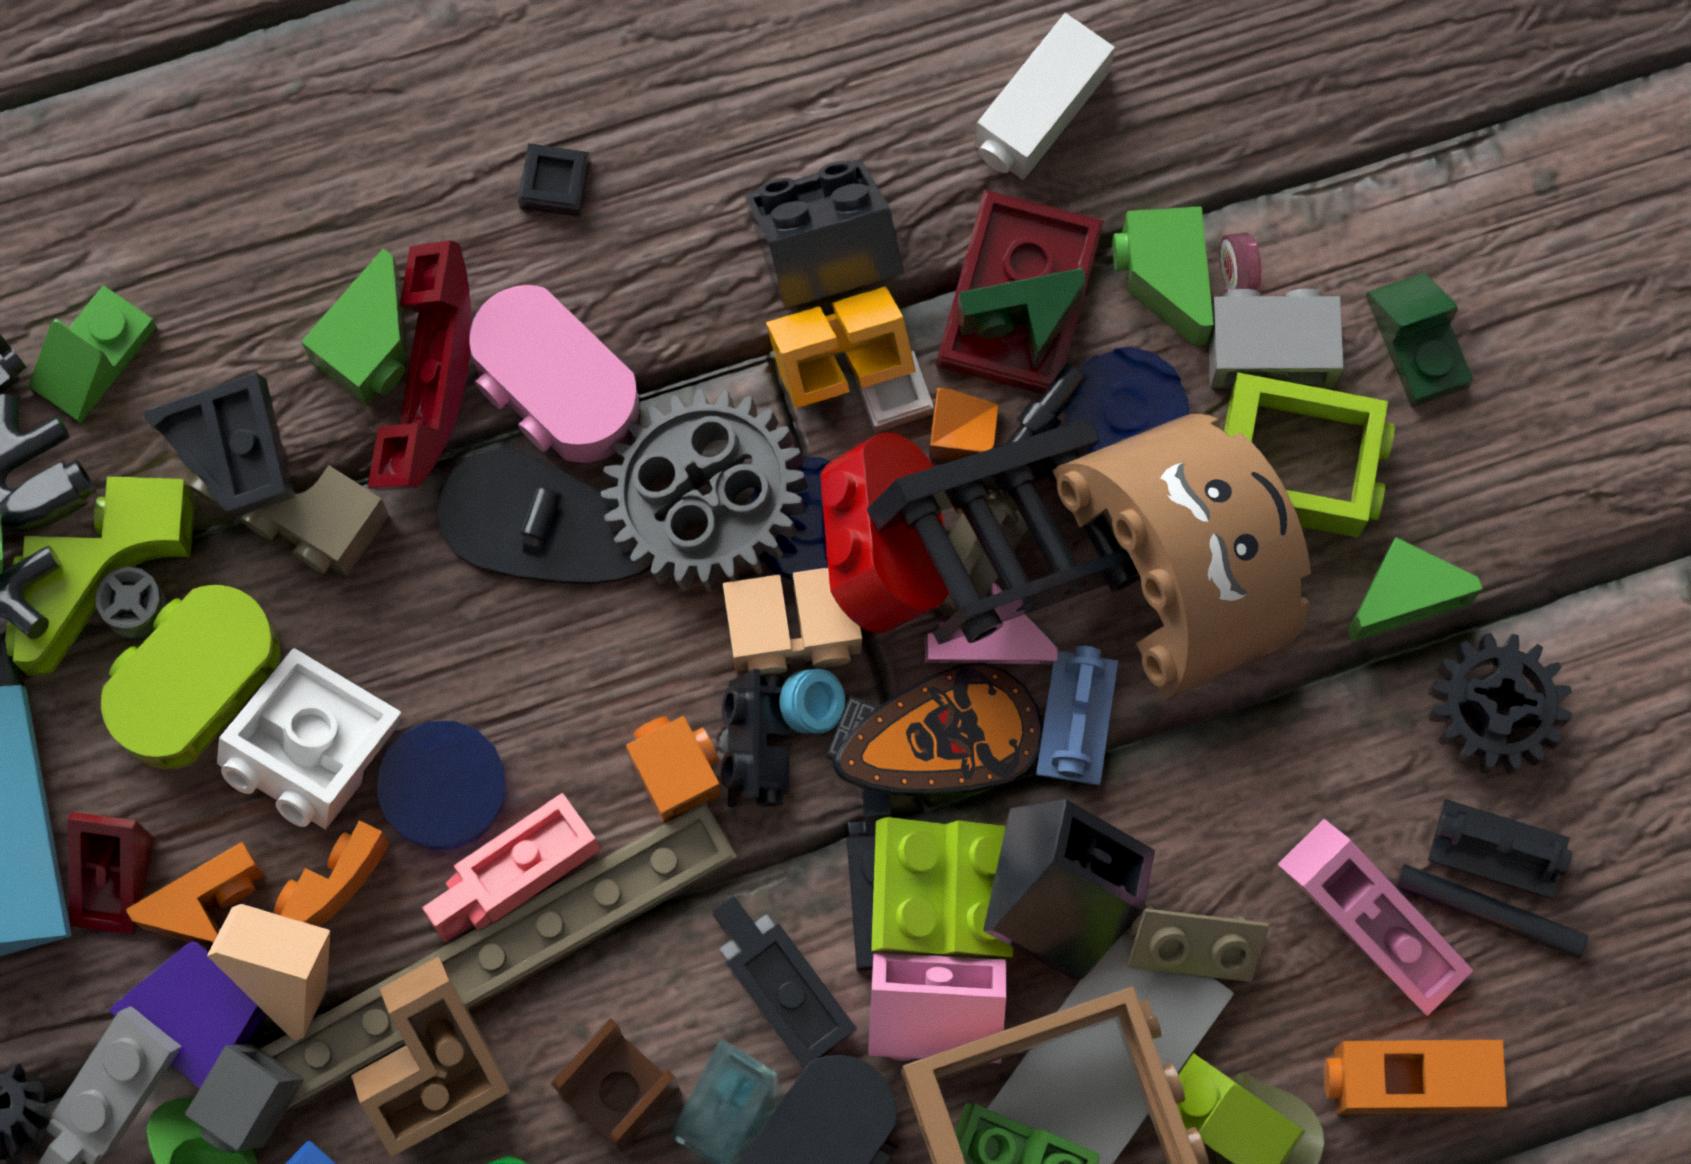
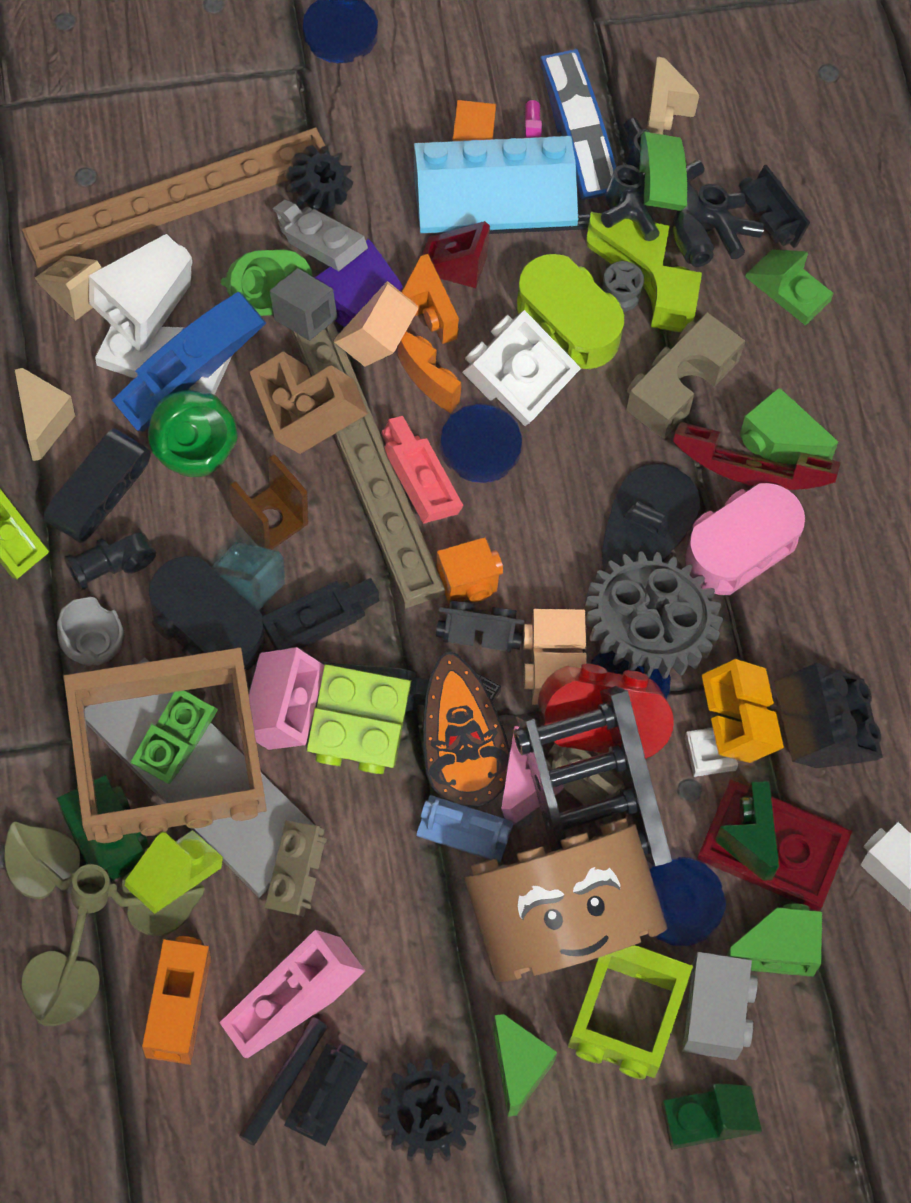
camera: 95 degrees right, 10 degrees down
(229, 442) = (712, 335): black wing -> none
(554, 180) = (884, 562): black tile -> none
(812, 701) = (500, 662): medium azure tile -> none
(961, 425) = (680, 787): orange slope -> none
(1043, 415) = (681, 840): black bar -> none
(1066, 885) = (343, 783): black slope -> none
(1240, 262) = (779, 994): clear pink tile -> none

